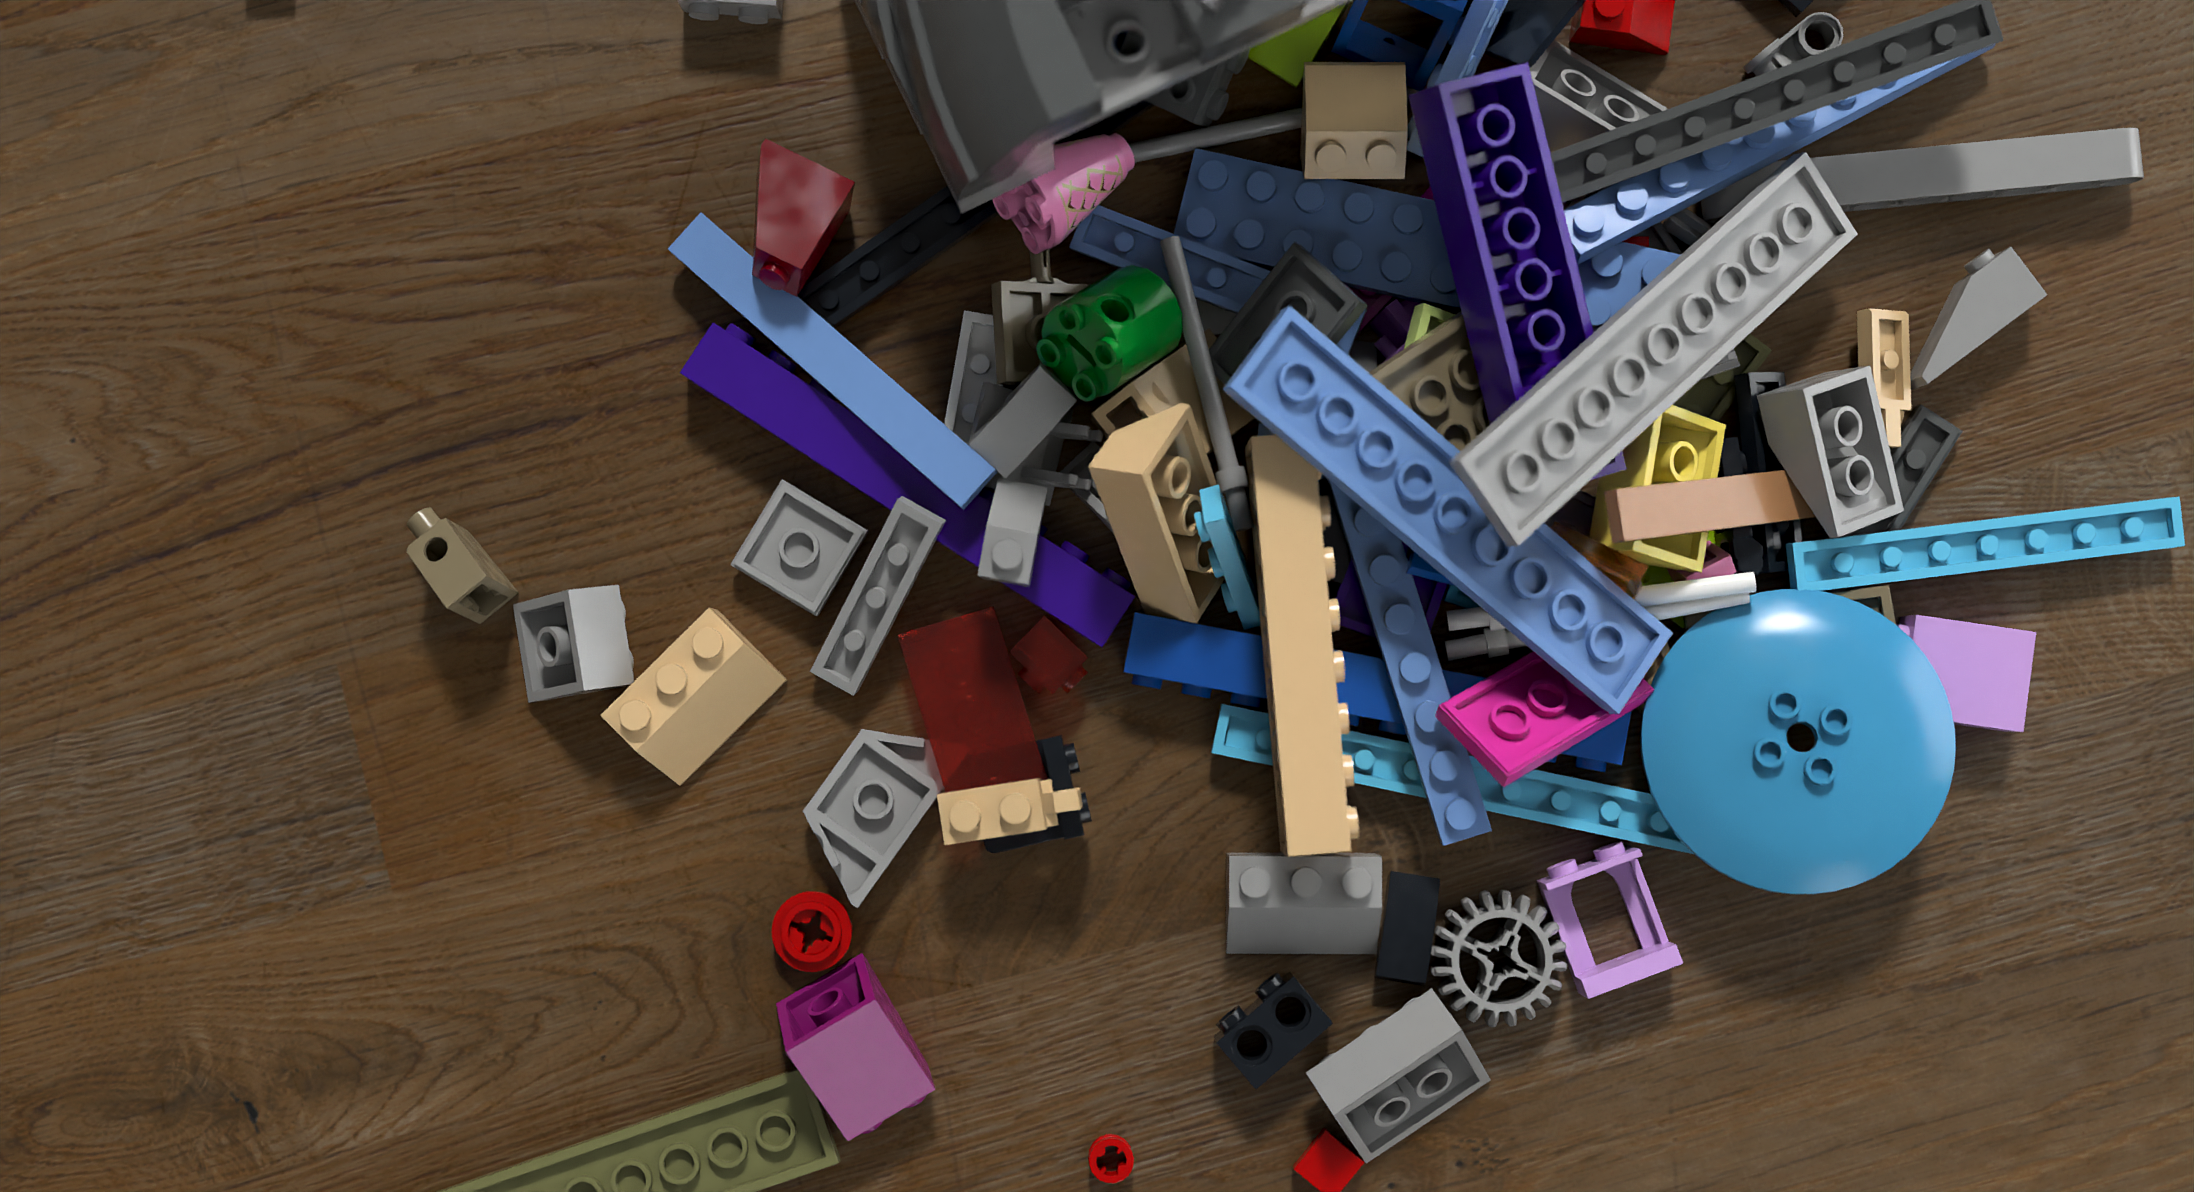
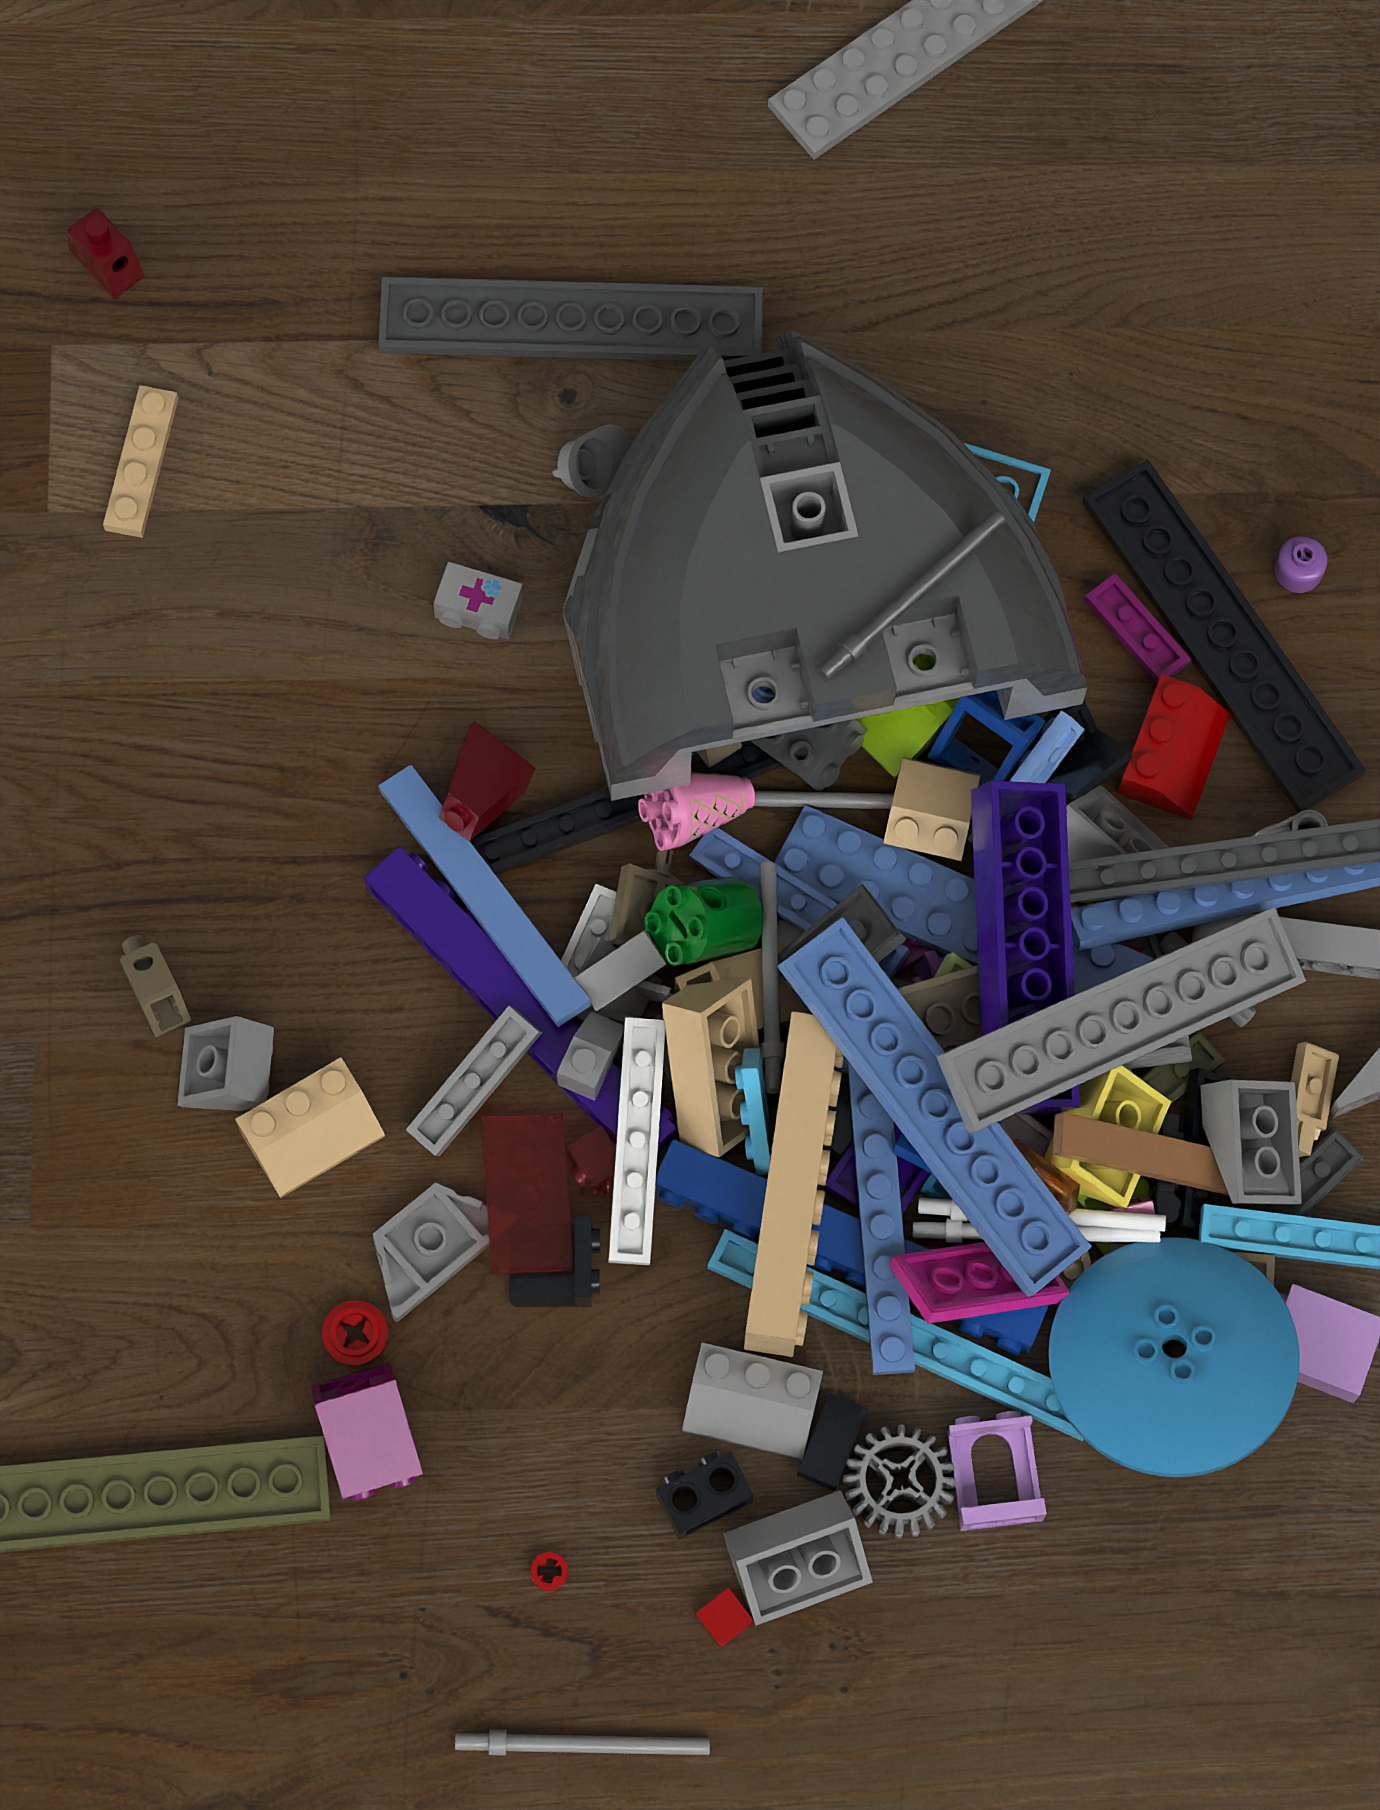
camera: 15 degrees right, 15 degrees down
(799, 548) = (421, 1034): light grey plate -> none
(1003, 809) = (533, 1261): tan hinge -> none
(1094, 629) = (637, 1141): none -> white plate

